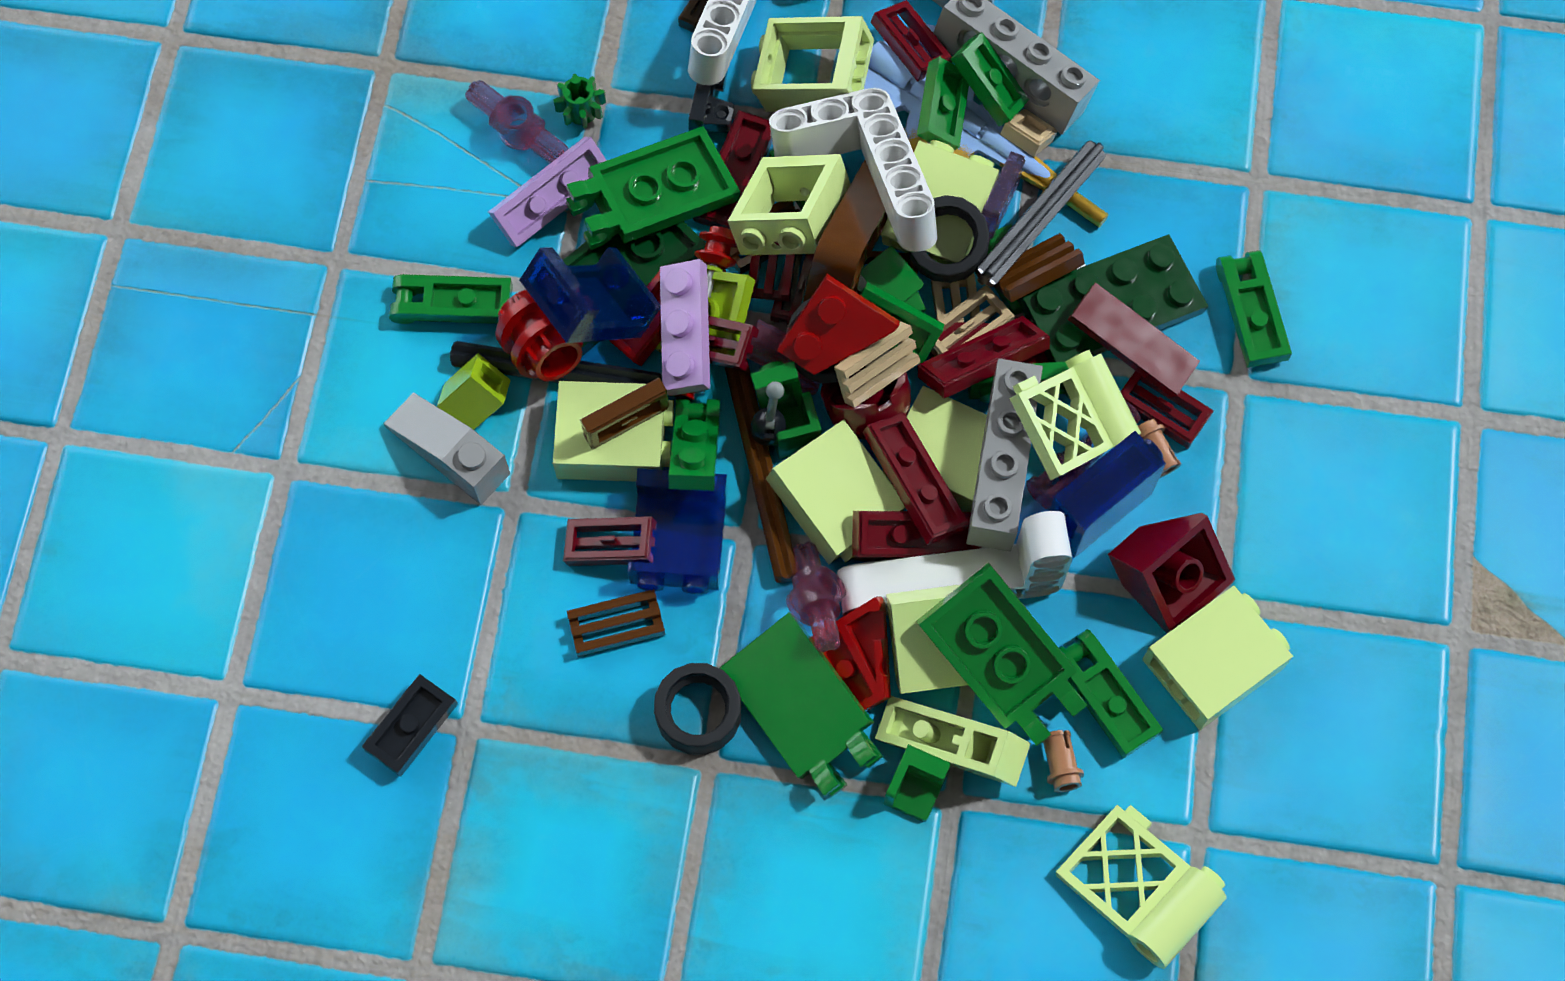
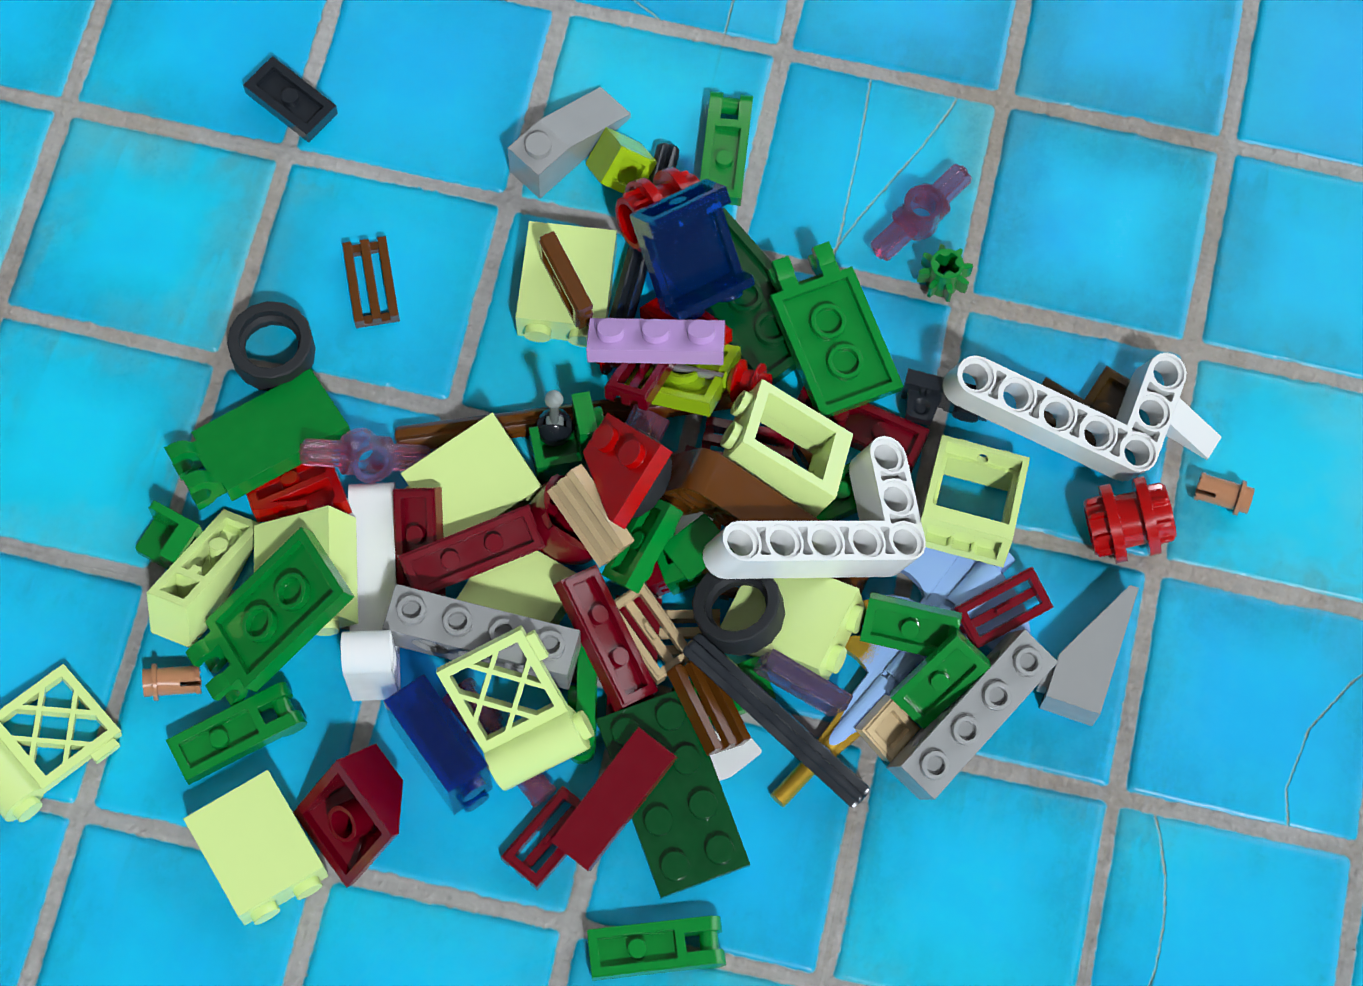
camera: 90 degrees right, 0 degrees up
(545, 193) = (824, 220): lavender plate -> none
(617, 557) = (447, 302): tile -> none
(686, 534) = (453, 342): clear blue panel -> none
(694, 445) = (536, 354): green plate -> none
(1154, 432) = (499, 818): nougat pin -> none

